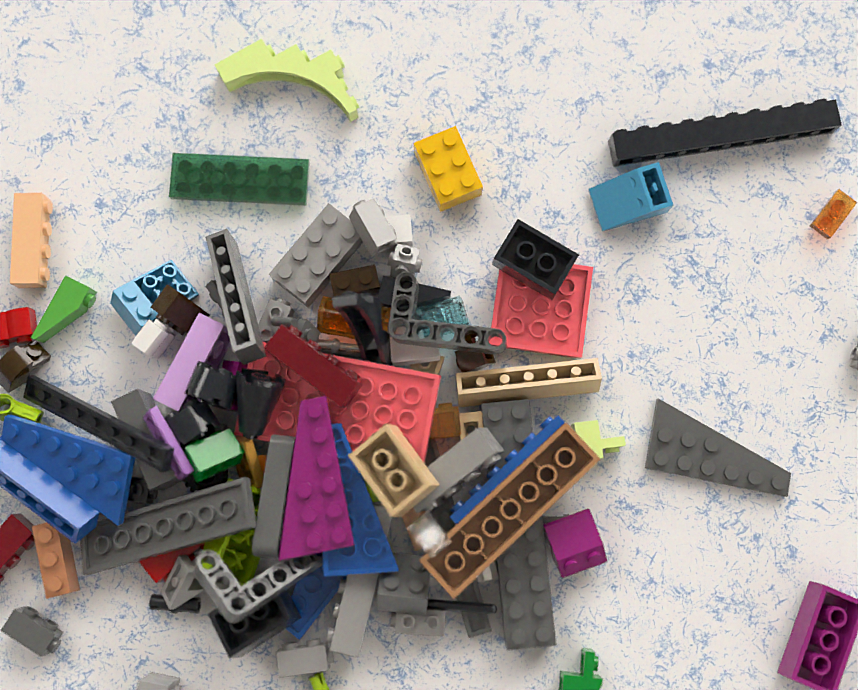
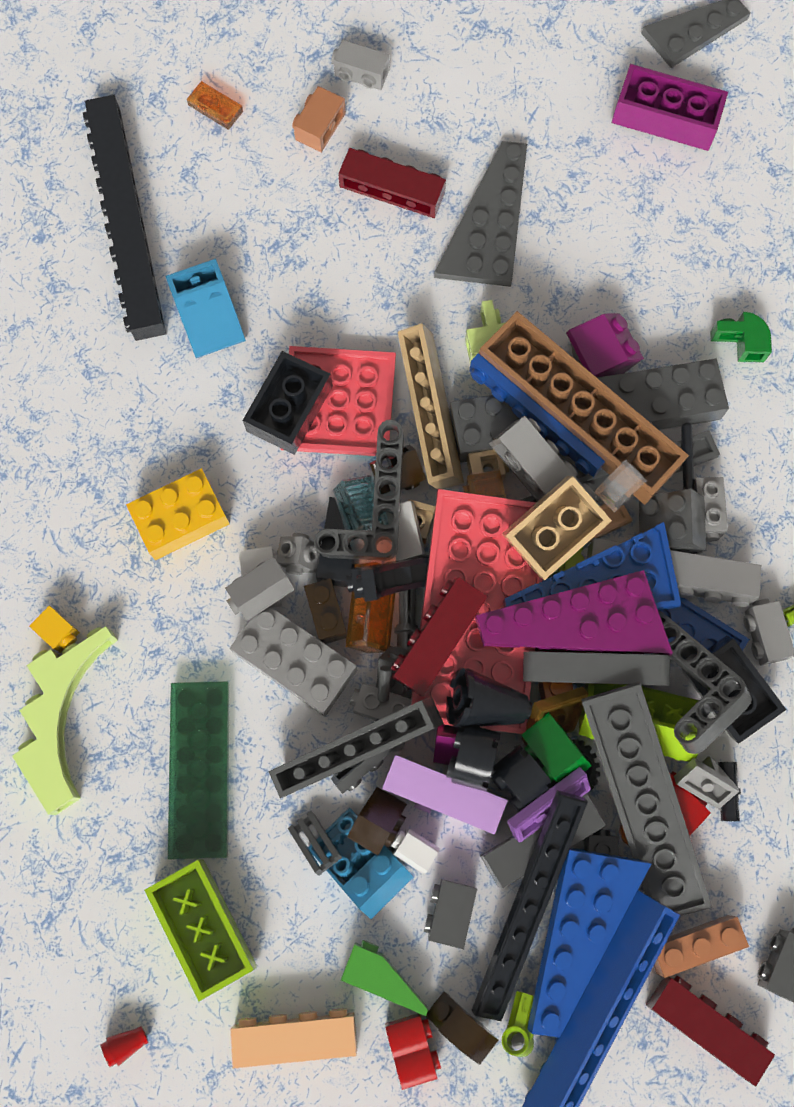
camera: 95 degrees left, 5 degrees down
(44, 118) = (123, 1045): none -> red cone
(105, 365) = (451, 913): none -> dark grey brick
(116, 174) = (200, 929): none -> lime brick
(167, 256) = (303, 826): none -> dark grey tile
(360, 72) = (54, 629): none -> yellow brick
(749, 367) = (392, 182): none -> dark red brick
(817, 305) = (319, 118): none -> nougat brick

